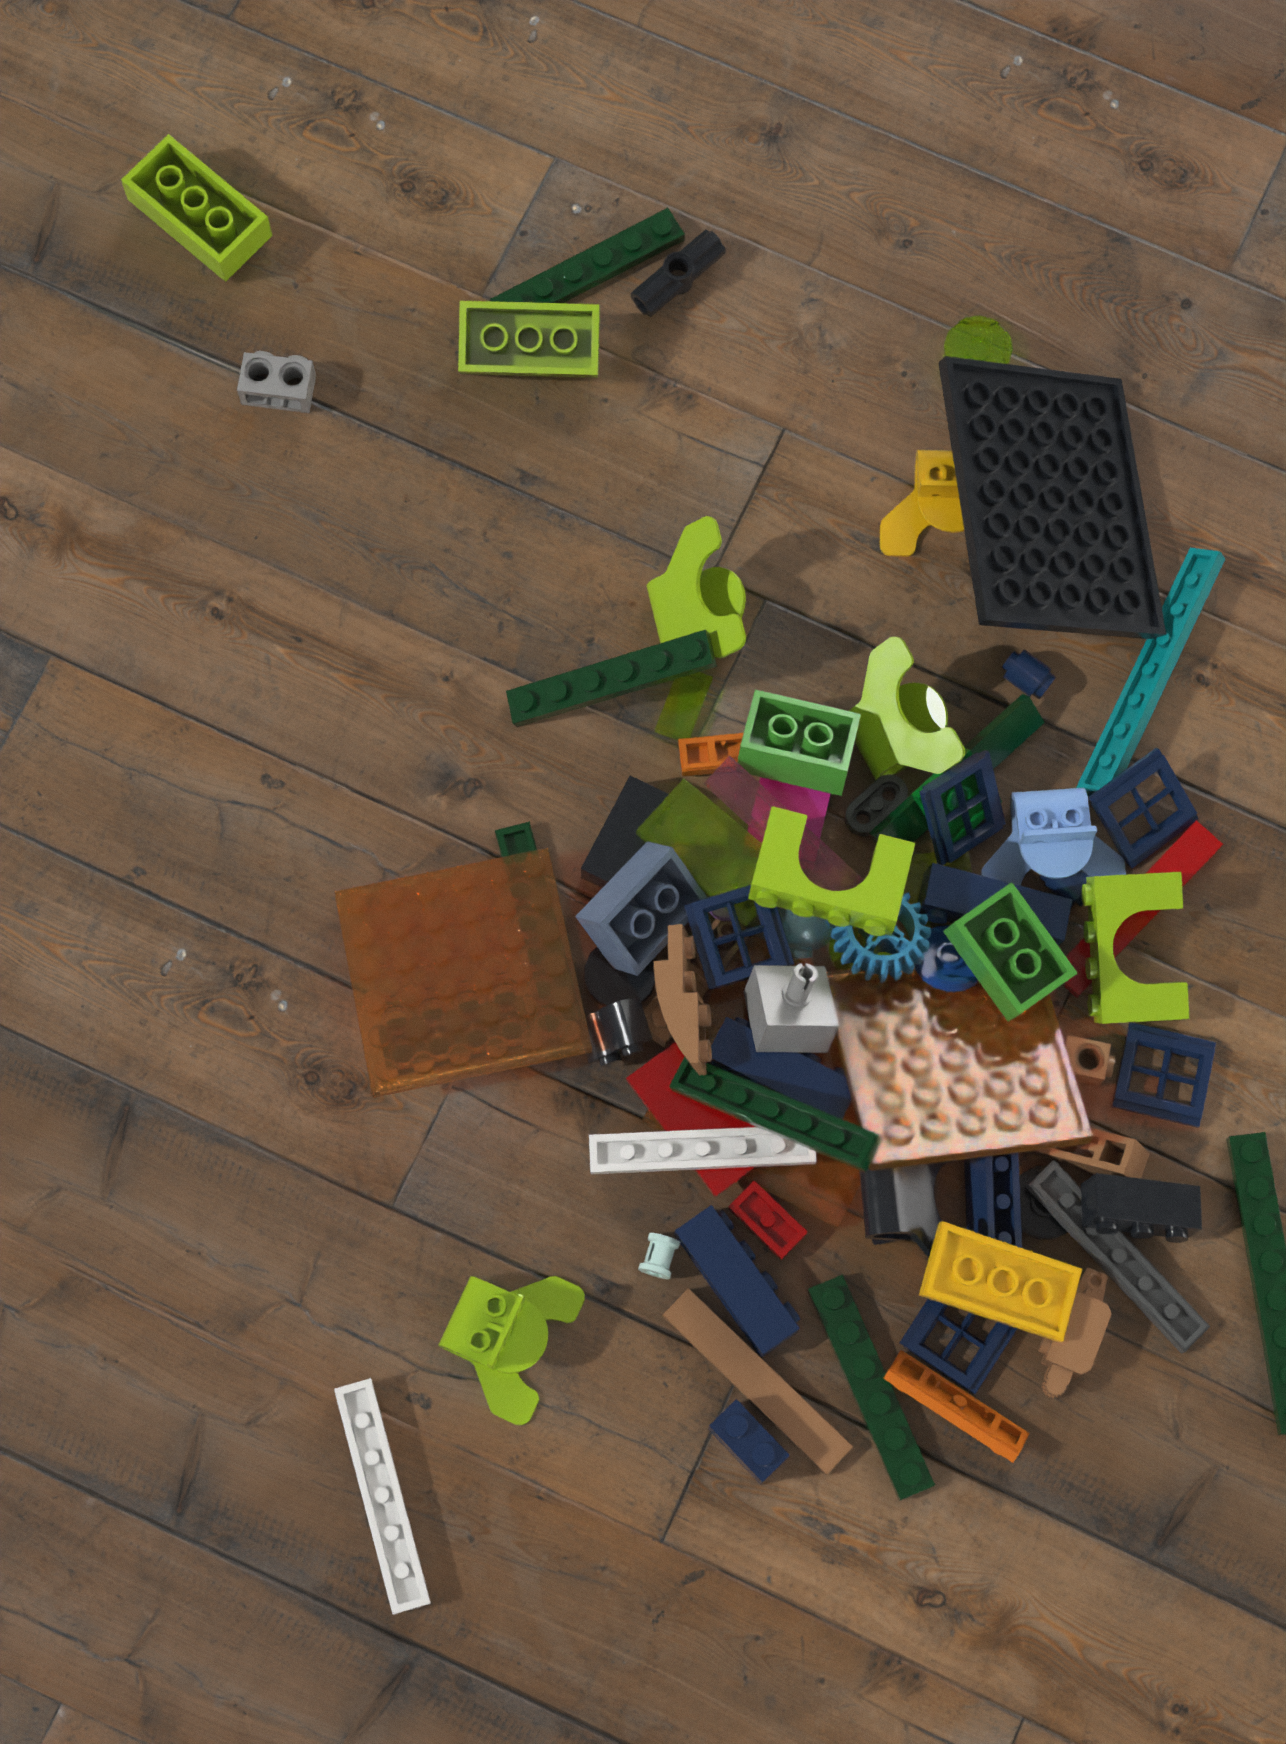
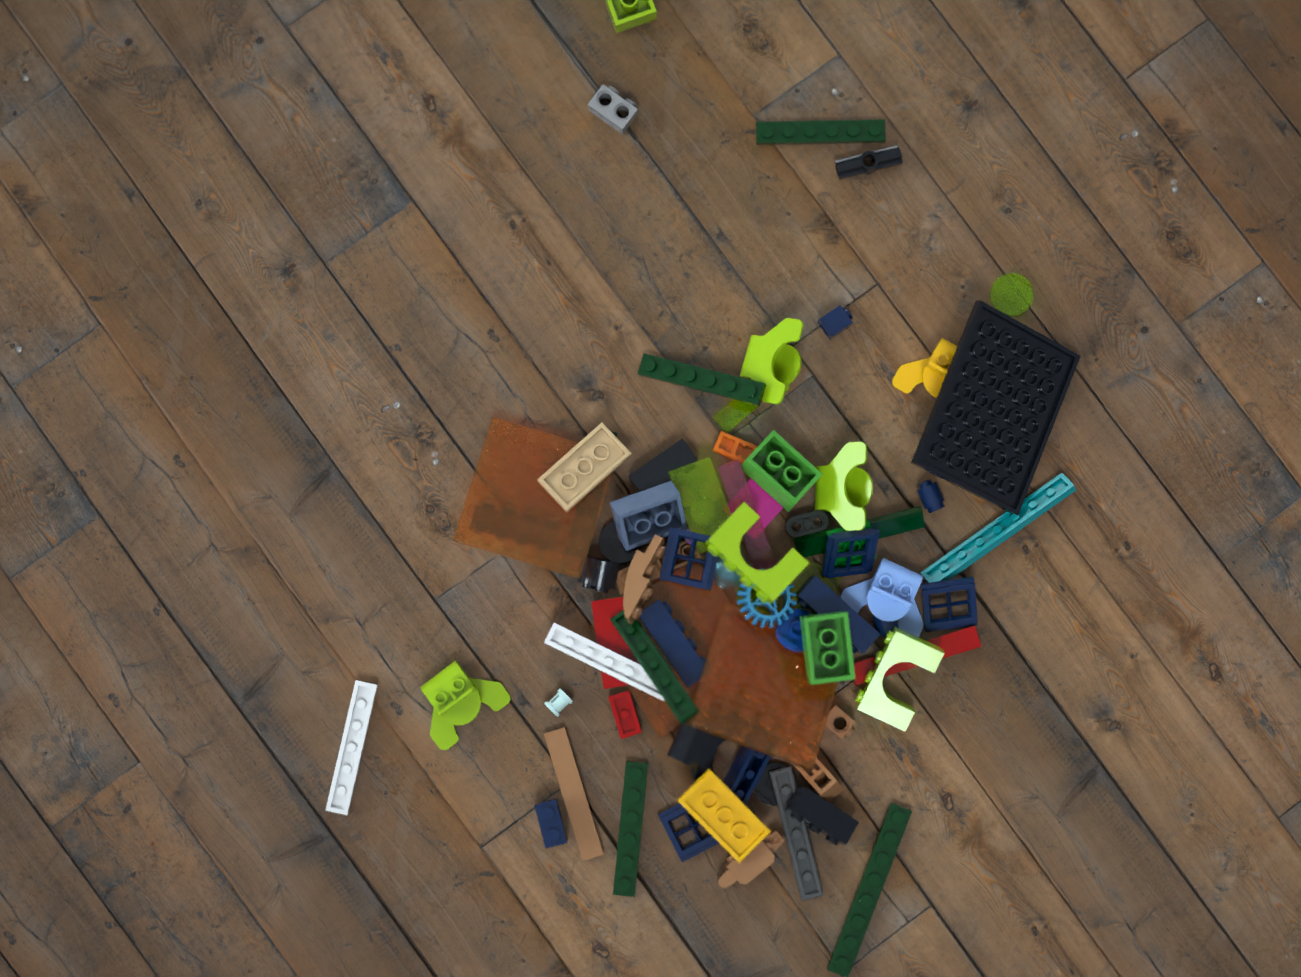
camera: 30 degrees right, 10 degrees up
(509, 889) = (584, 467): none -> tan tile
(529, 339) = (763, 159): lime brick -> none
(737, 1281) = (590, 737): dark blue brick -> none
(755, 507) = (835, 322): none -> dark blue brick
(791, 1008) = (695, 614): light grey brick -> none
(956, 1406) = (668, 863): orange plate -> none
(1170, 1043) = (890, 737): dark blue piece -> none

